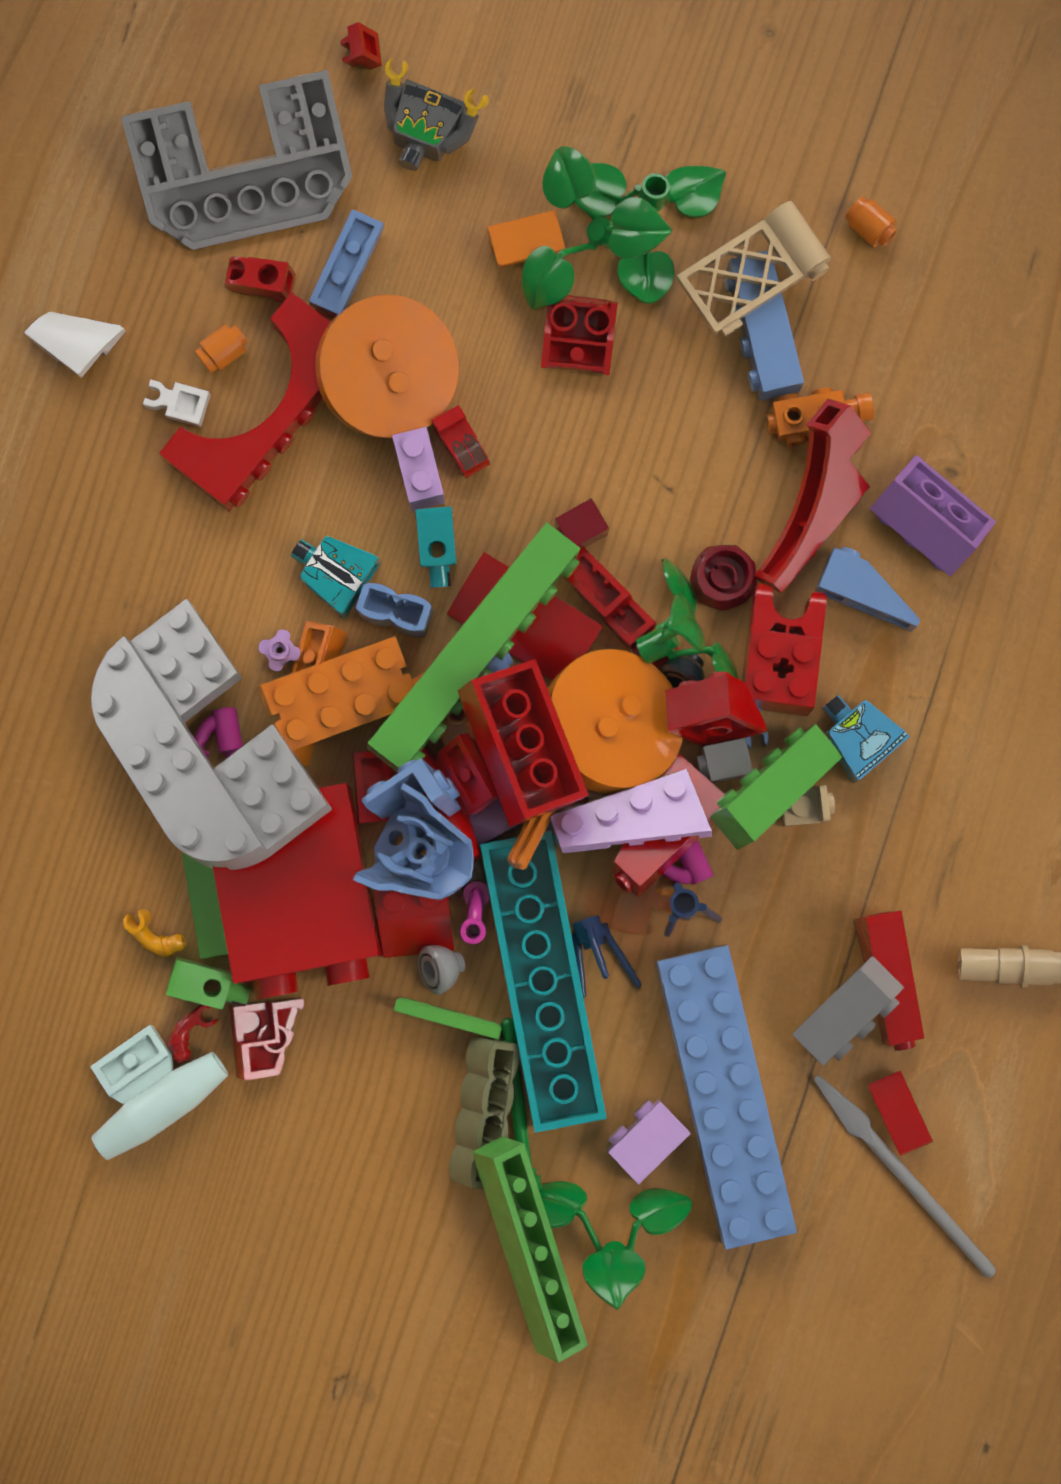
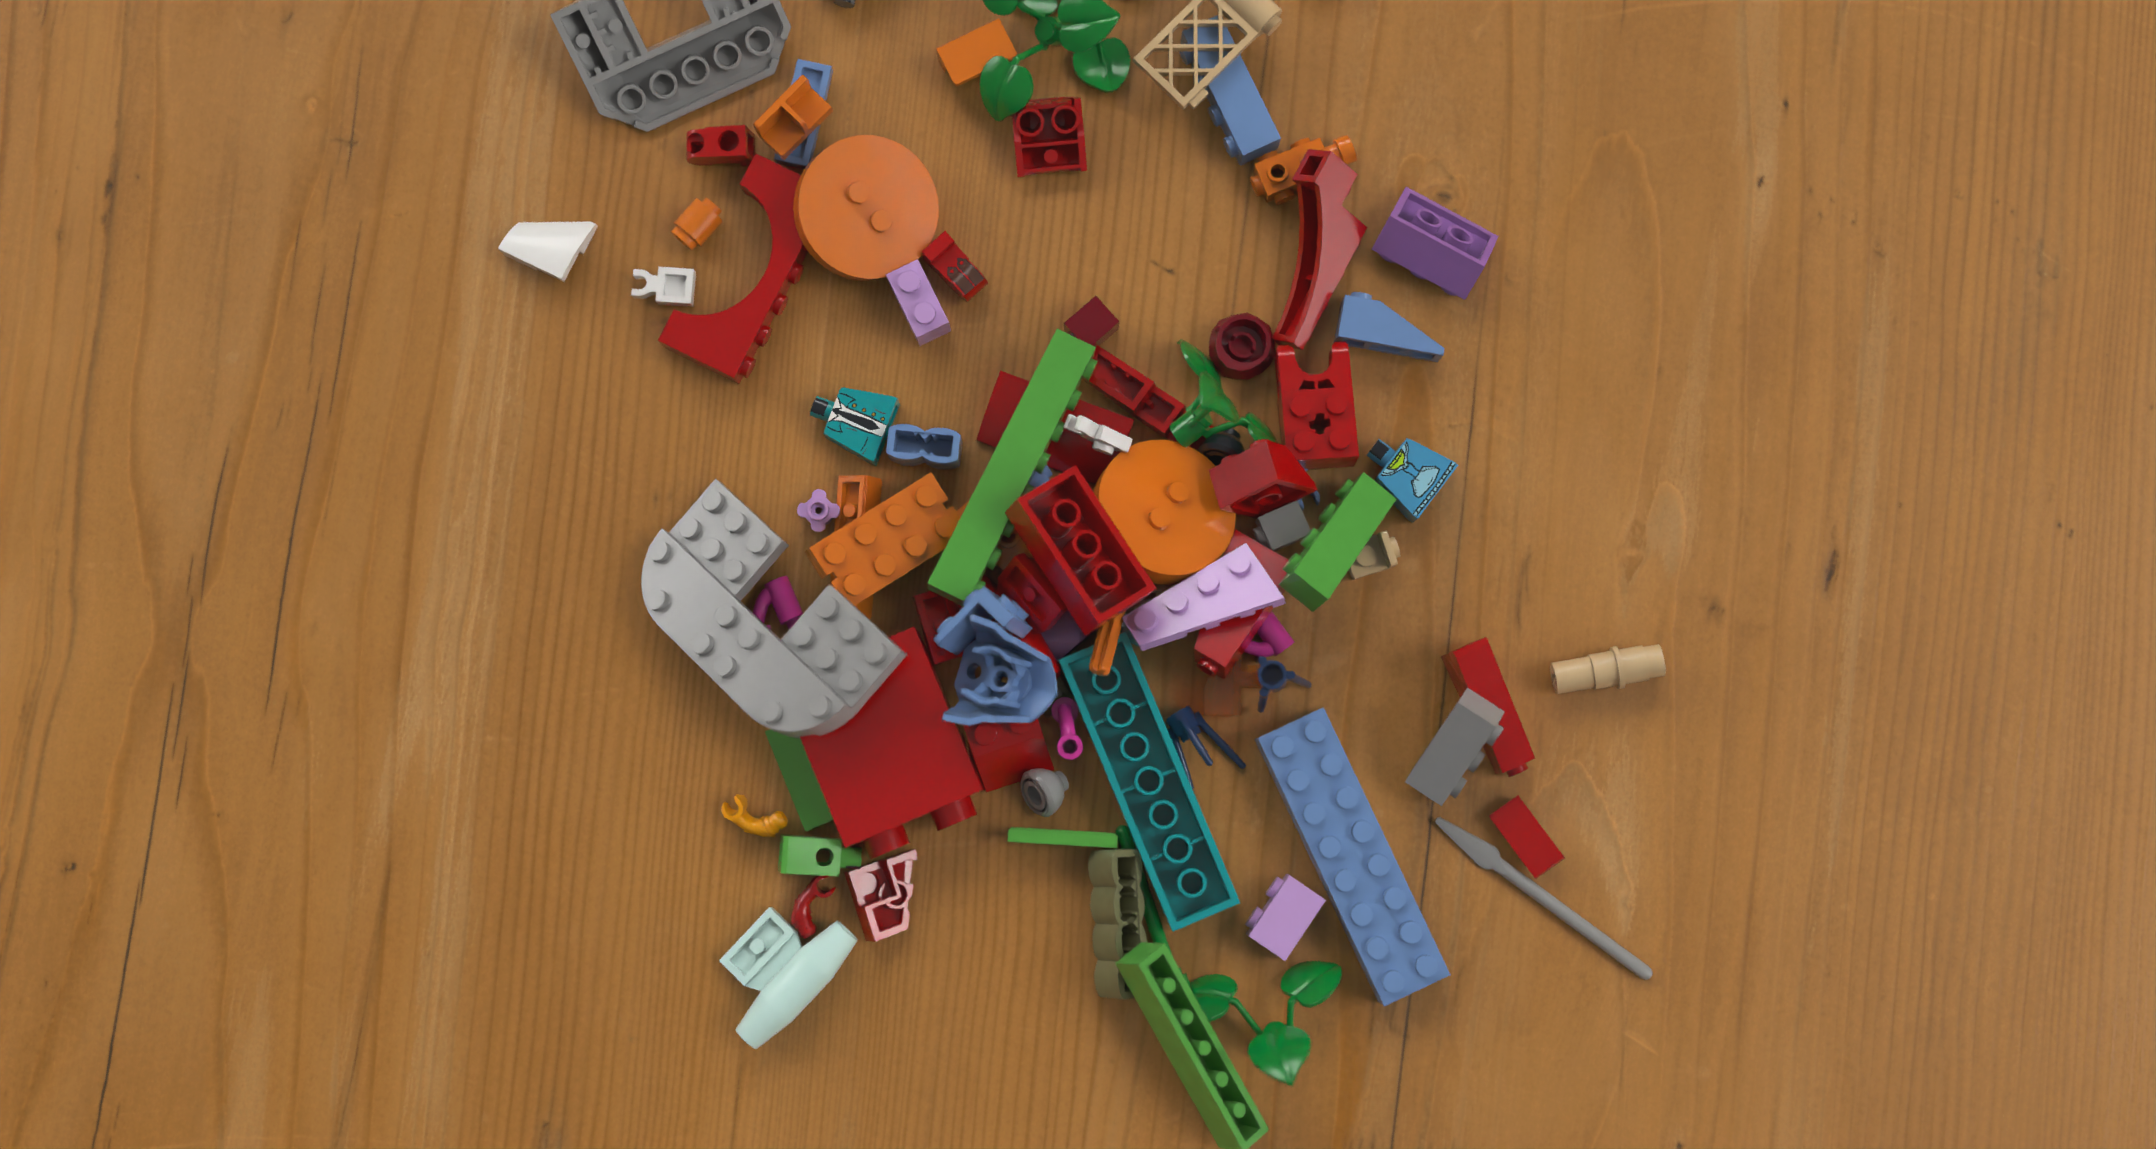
camera: 10 degrees left, 0 degrees up
(334, 265) = (792, 118): none -> orange panel
(432, 527) = (949, 355): teal torso -> none
(569, 638) = (1103, 438): none -> white plate

